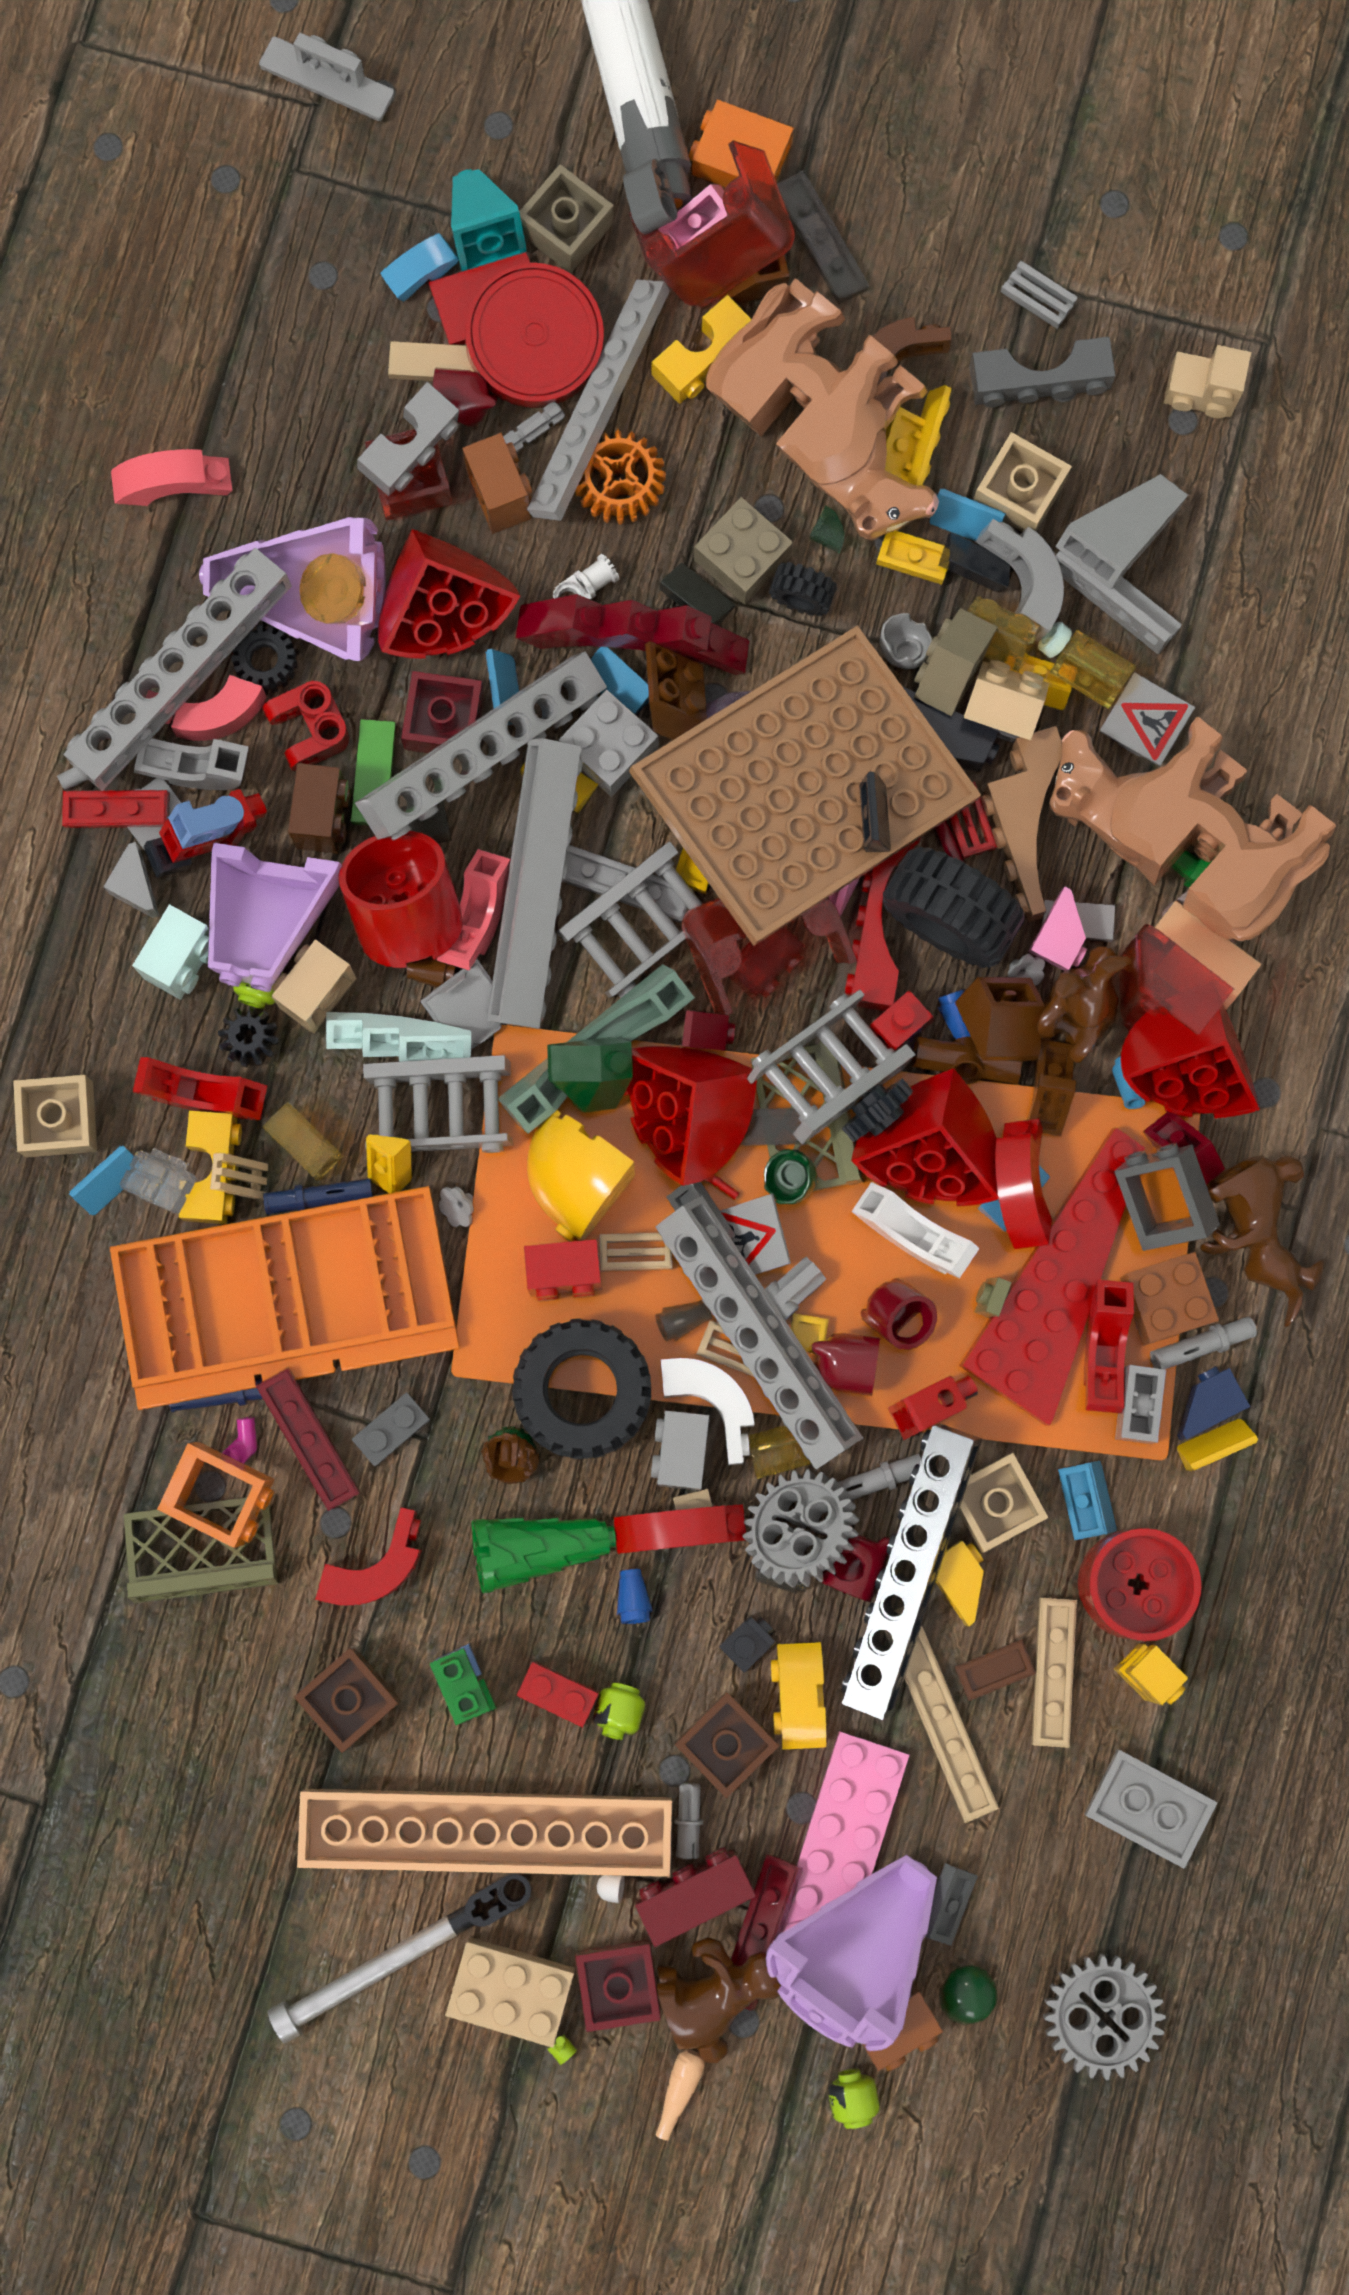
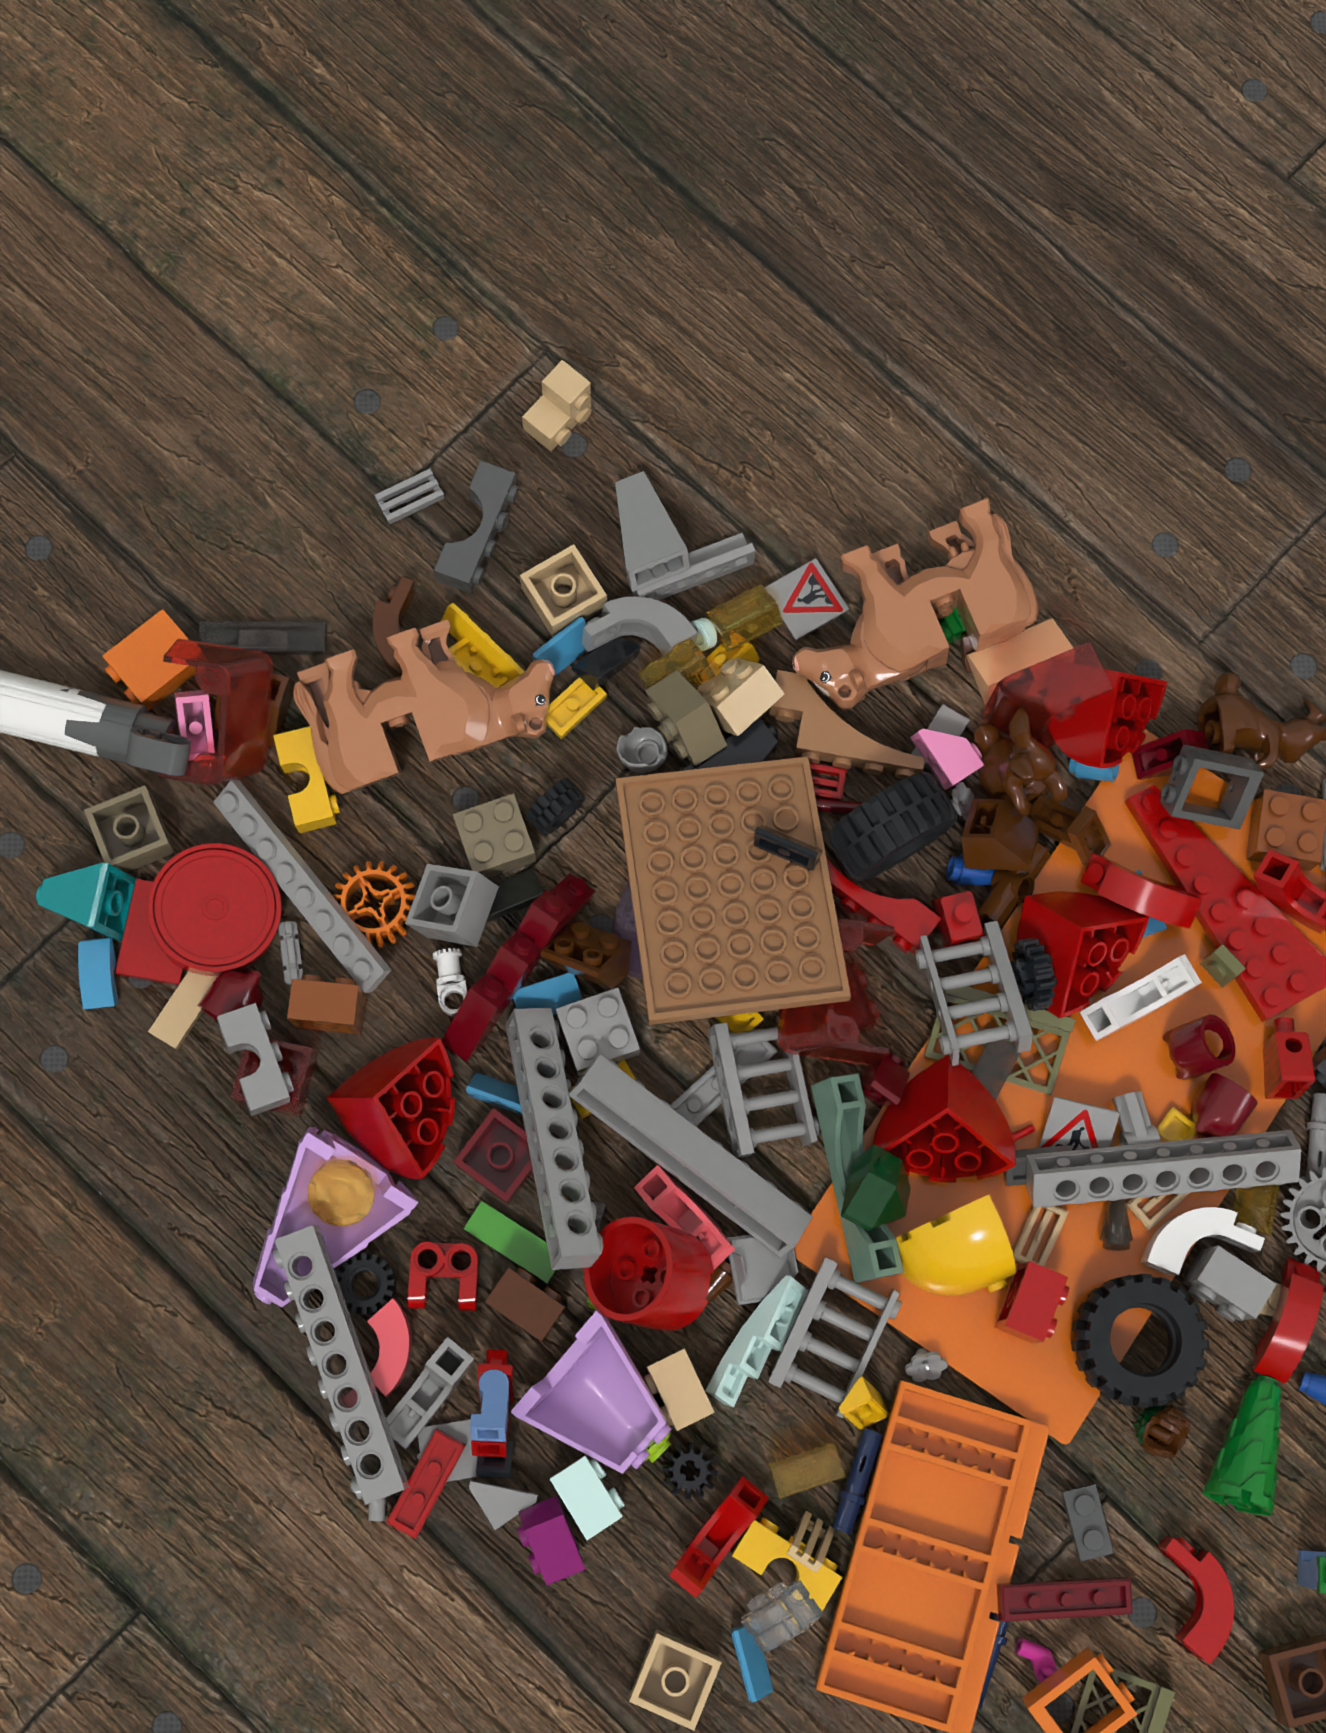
camera: 65 degrees left, 5 degrees down
(118, 941) = (551, 1541): none -> magenta brick
(169, 473) = (159, 1281): coral arch -> none
(654, 544) = (452, 905): none -> light grey brick
(790, 1176) = (1046, 1075): dark green hair -> none
(828, 530) = (512, 761): clear green tile -> none

